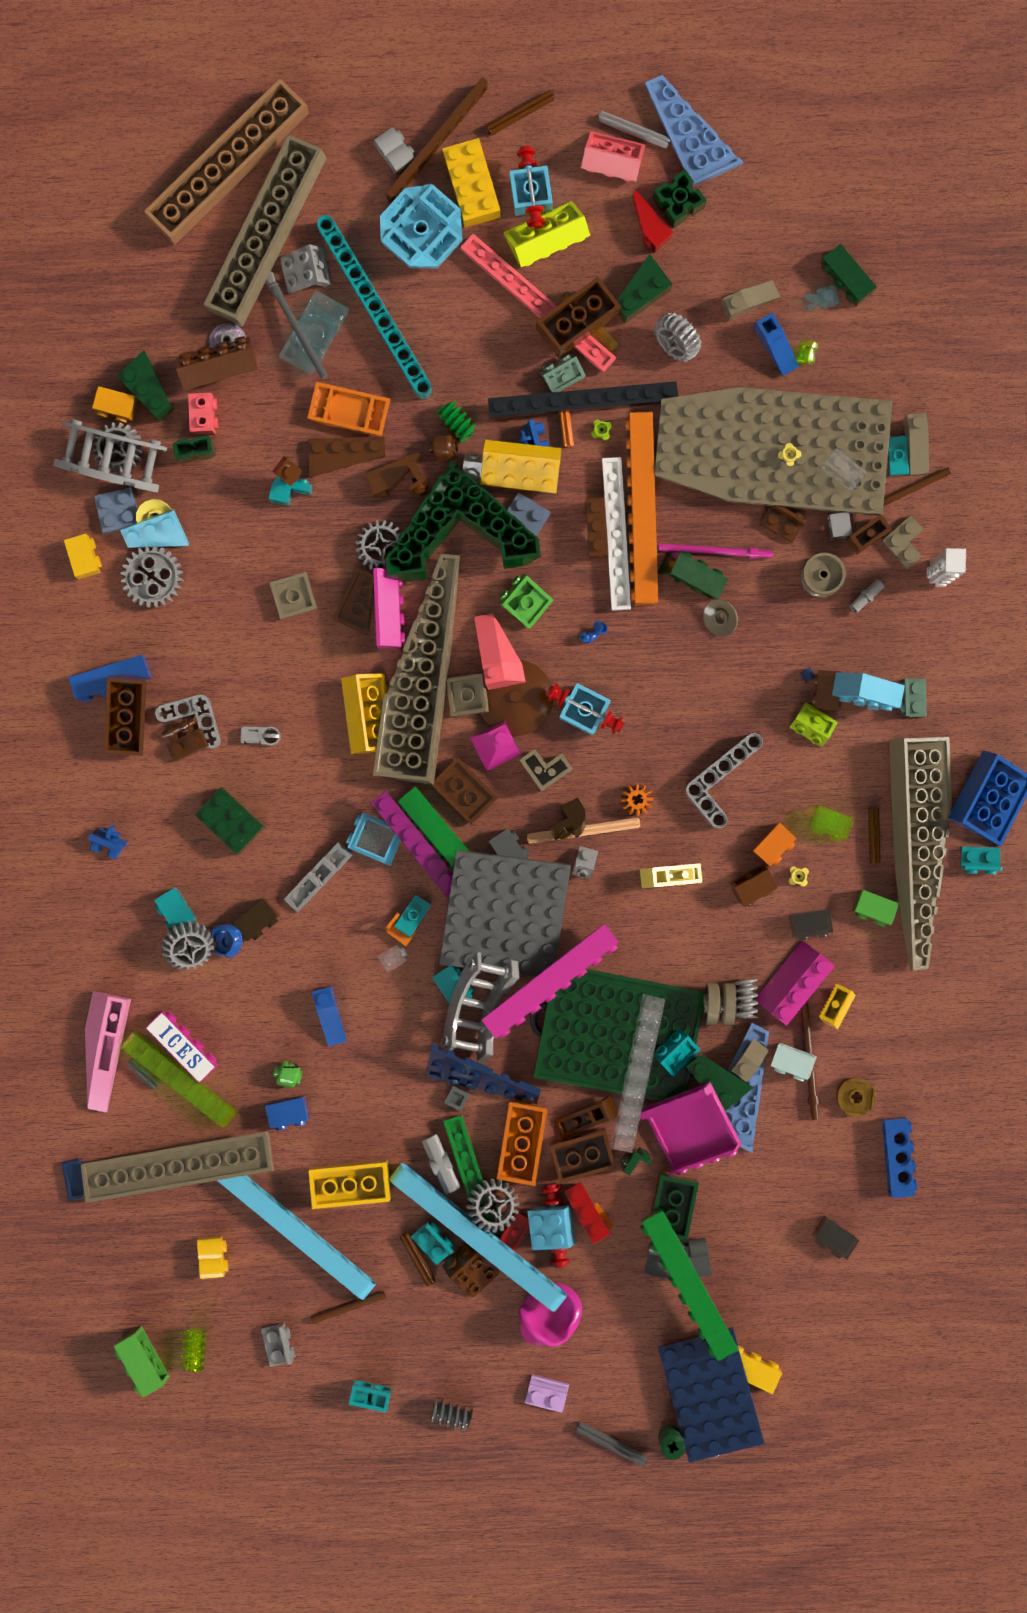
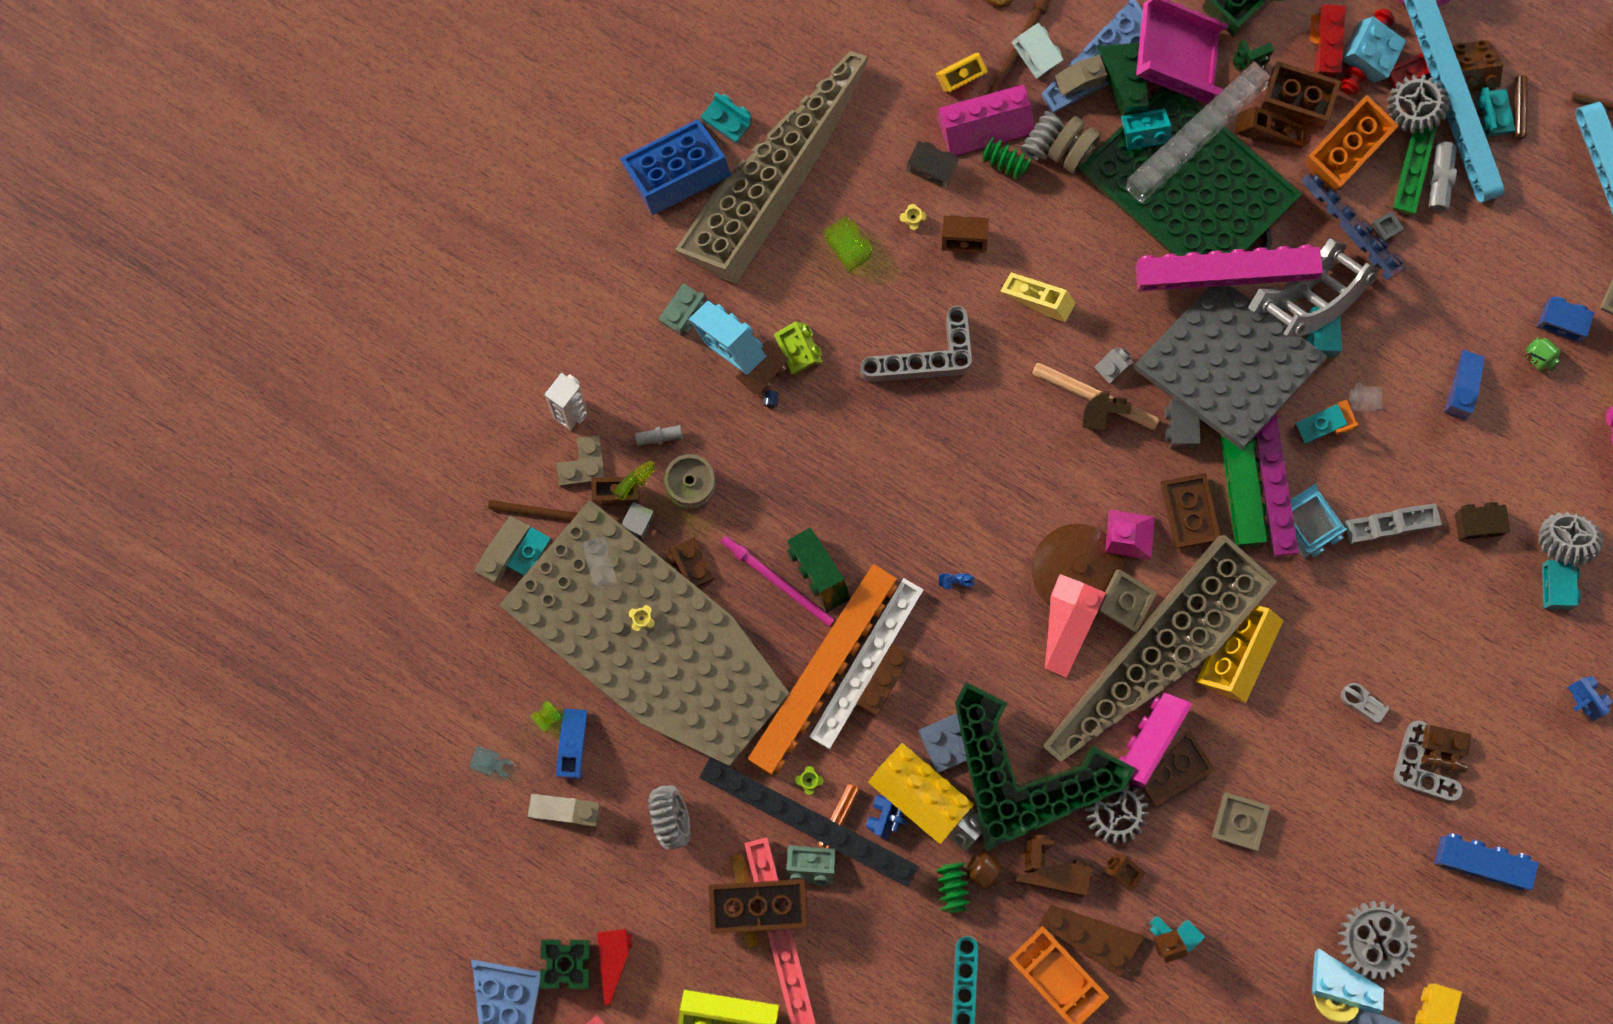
camera: 145 degrees left, 10 degrees down
(125, 714) = (1495, 810): reddish brown brick -> none
(228, 940) = (1525, 518): blue hair -> none
(230, 821) = (1449, 635): dark green brick -> none
(349, 1184) = (1546, 212): yellow brick -> none
(350, 509) = (1124, 871): none -> reddish brown bracket
(525, 600) = (1005, 657): bright green plate -> none
(545, 774) = (1100, 472): dark tan brick -> none
(584, 709) = (1018, 507): medium azure brick -> none
(639, 805) = (1025, 382): orange gear -> none
(643, 290) = (668, 894): dark green wedge -> none
(715, 622) = (819, 509): dark tan dish -> none
(761, 962) = (1006, 159): none -> green piece
(774, 844) = (917, 259): orange brick -> none
(847, 275) = (449, 767): dark green brick -> none
(860, 549) = (639, 475): none -> clear neon green slope
(874, 835) = (812, 207): reddish brown axle -> none
(875, 907) = (860, 139): bright green brick -> none

